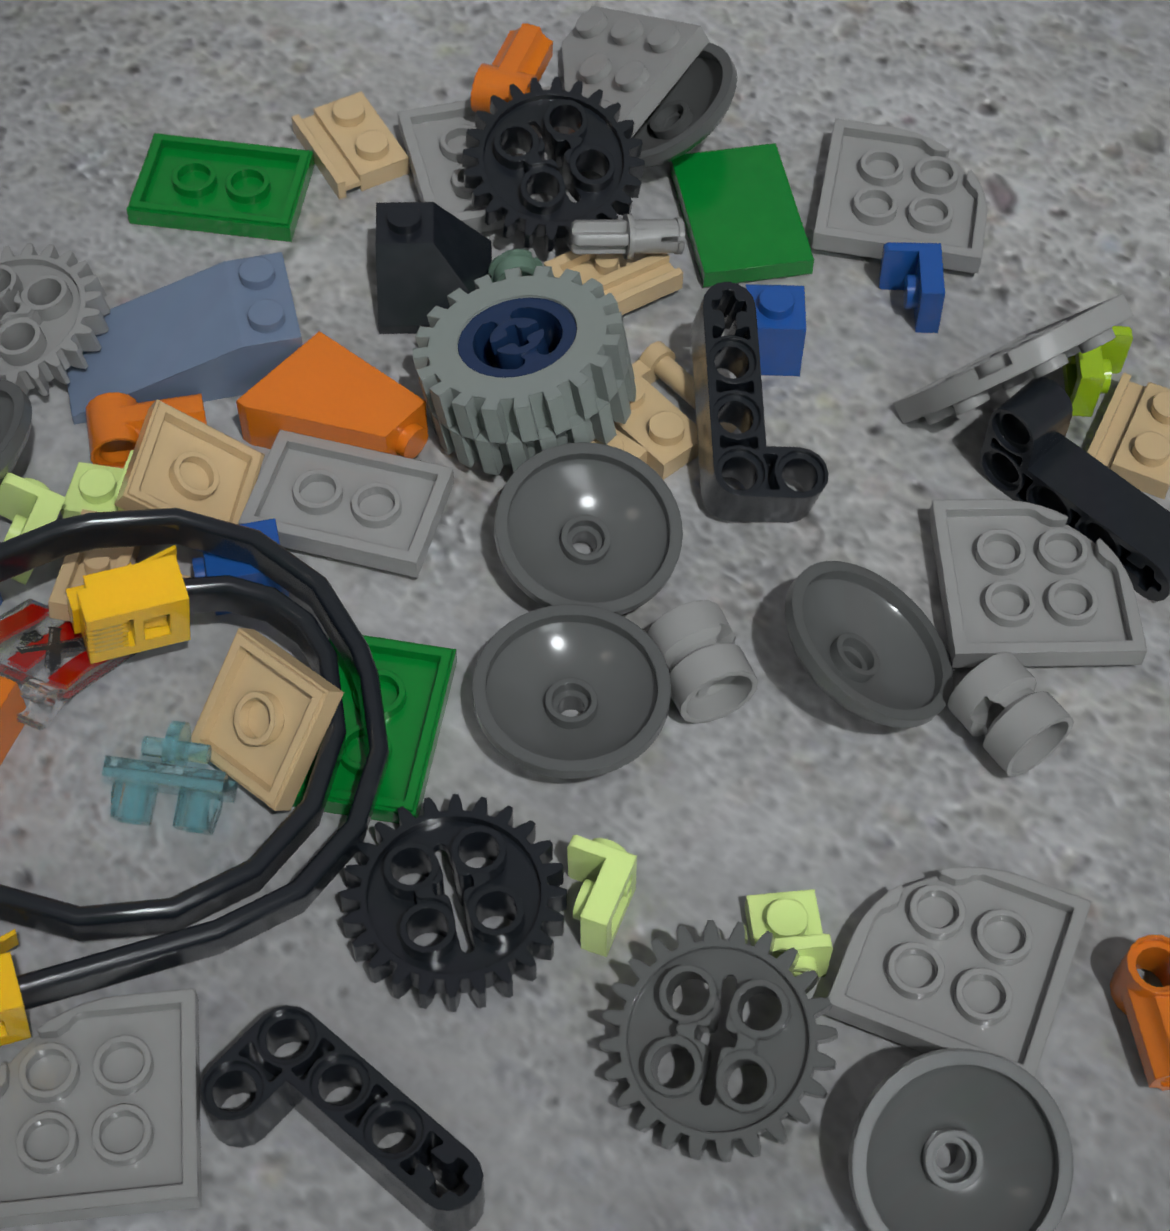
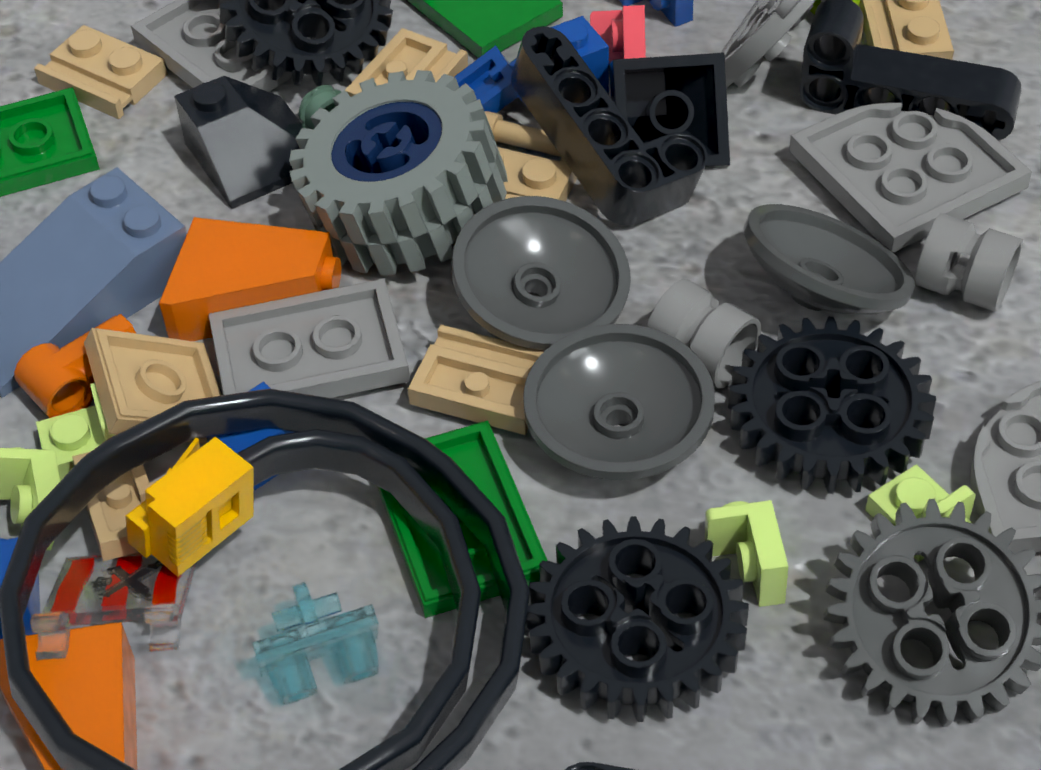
camera: 25 degrees left, 5 degrees down
(266, 718) = (375, 543): tan plate -> none
(466, 599) = (474, 378): none -> tan plate
(627, 236) = (407, 38): light grey axle -> none
(670, 315) = (490, 80): none -> blue bracket
(775, 790) = (831, 404): none -> black gear
(836, 413) = (675, 97): none -> black slope
(840, 321) = (622, 31): none -> coral bracket

